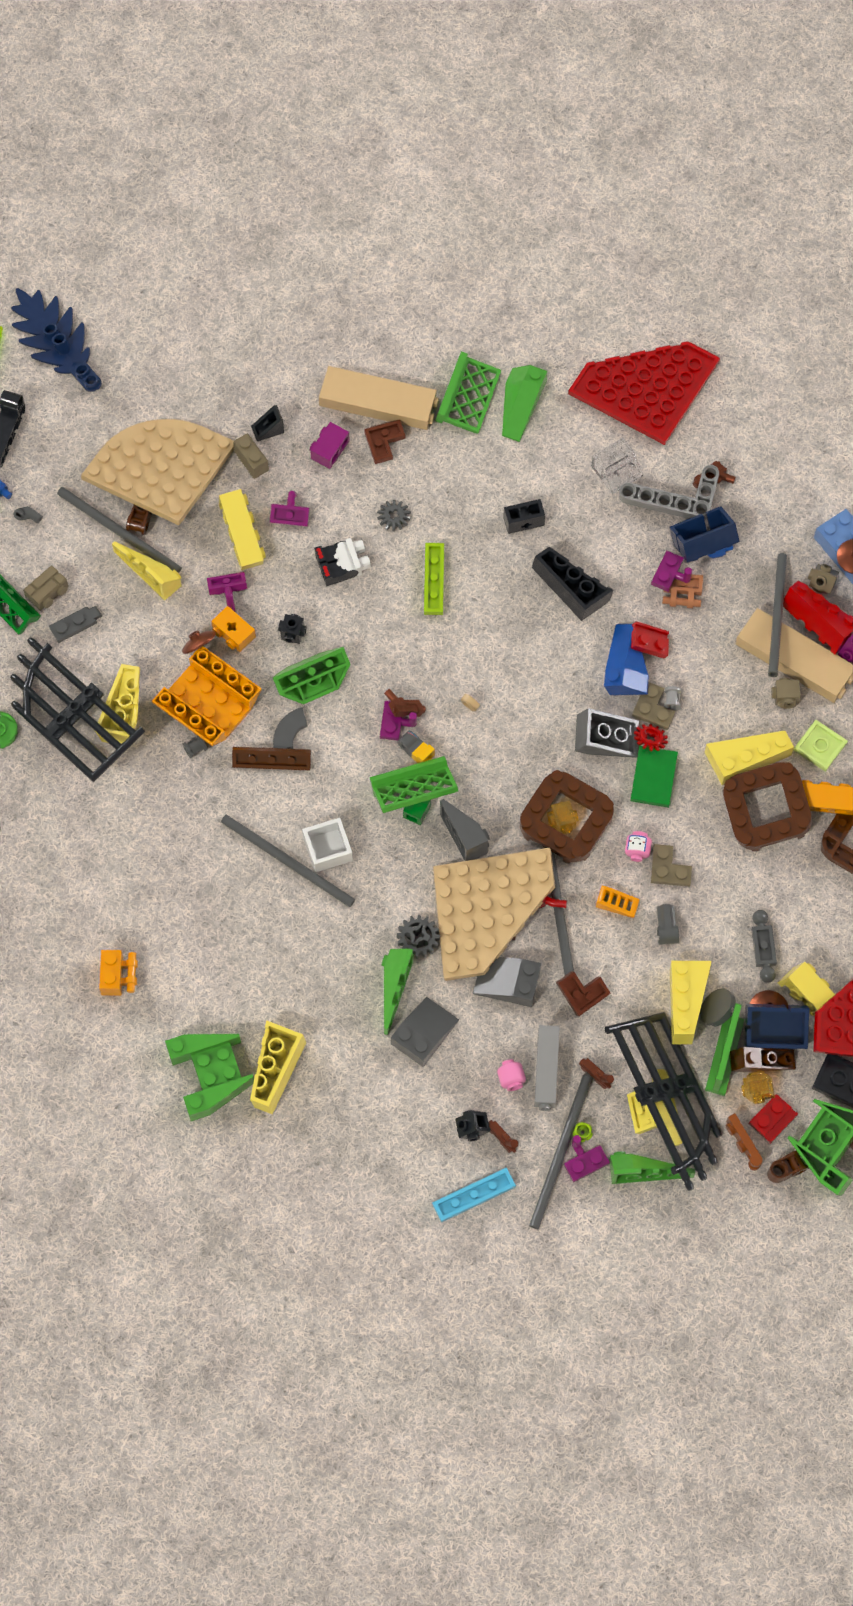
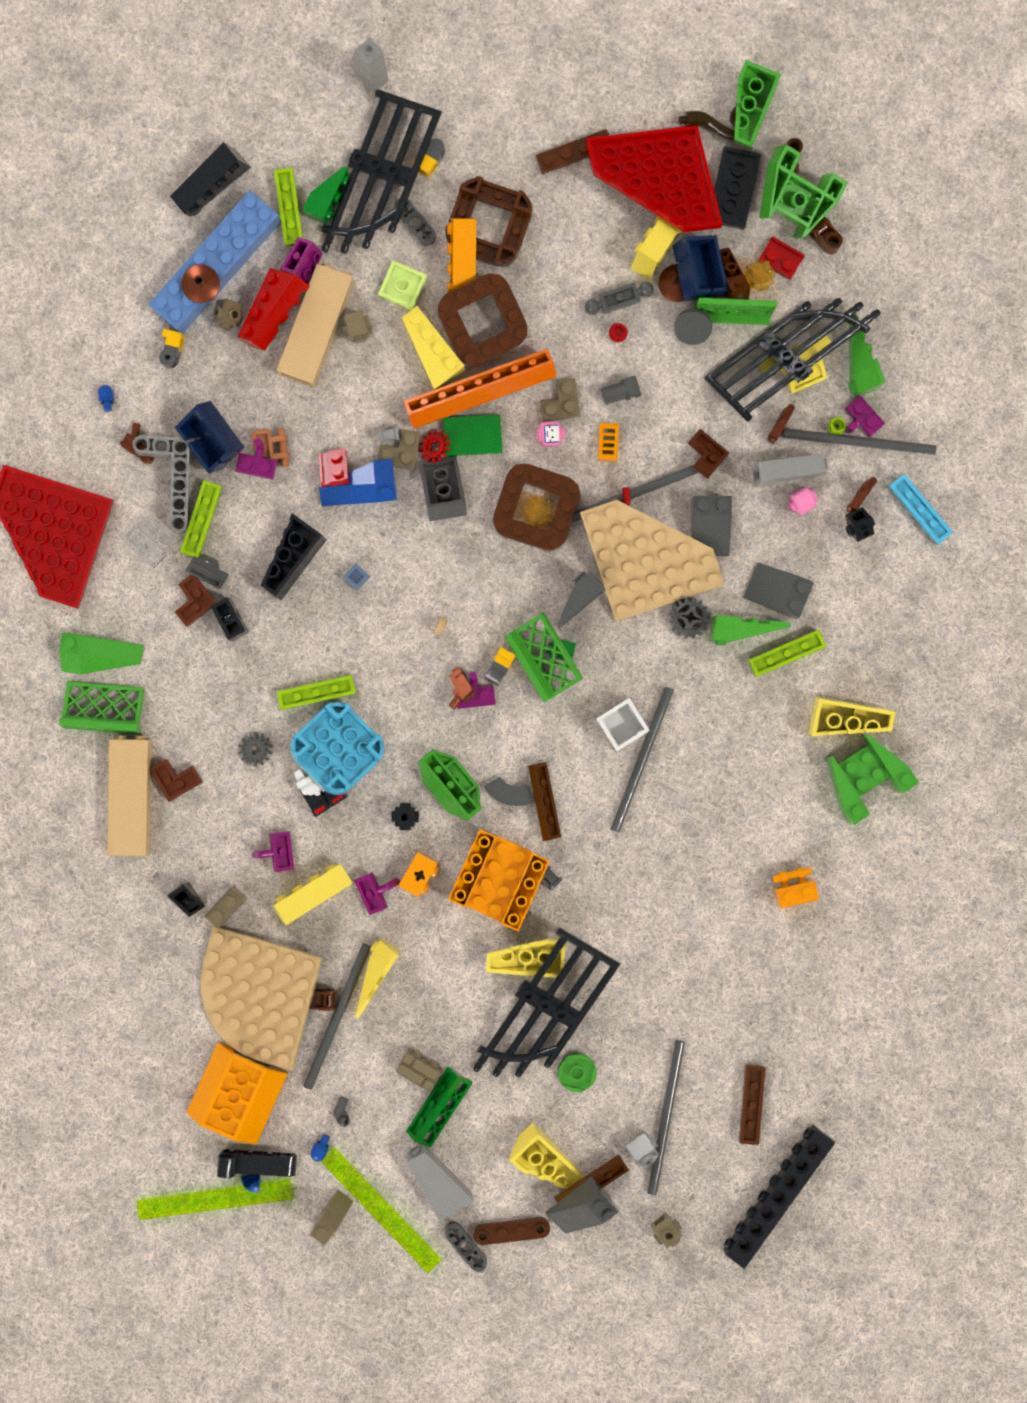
camera: 105 degrees left, 20 degrees up
(55, 338) = (136, 1143): dark blue plant -> none
(70, 427) = (236, 1095): none -> light orange slope
(75, 623) = (447, 1030): dark grey hinge -> none
(197, 640) = (442, 903): copper dish -> none
(329, 445) = (195, 831): magenta brick -> none
(357, 1024) = (787, 653): none -> lime plate
(374, 581) = (336, 748): none -> medium azure tile
(538, 638) = (356, 577): none -> sand blue plate
(551, 496) = (198, 603): none -> copper plate
(576, 508) = (207, 570): none -> dark grey tile
(627, 514) = (201, 519): none -> lime plate
(687, 991) = (691, 356): light yellow wedge -> none
(698, 789) = (480, 388): none -> orange brick
(728, 937) = (618, 332): none -> red plate
(744, 1142) = (813, 278): dark orange plate -> none
(766, 458) = (106, 397): none -> blue cylinder
(777, 615) = (281, 348): dark grey piece -> none
(800, 524) = (172, 349): none -> leg

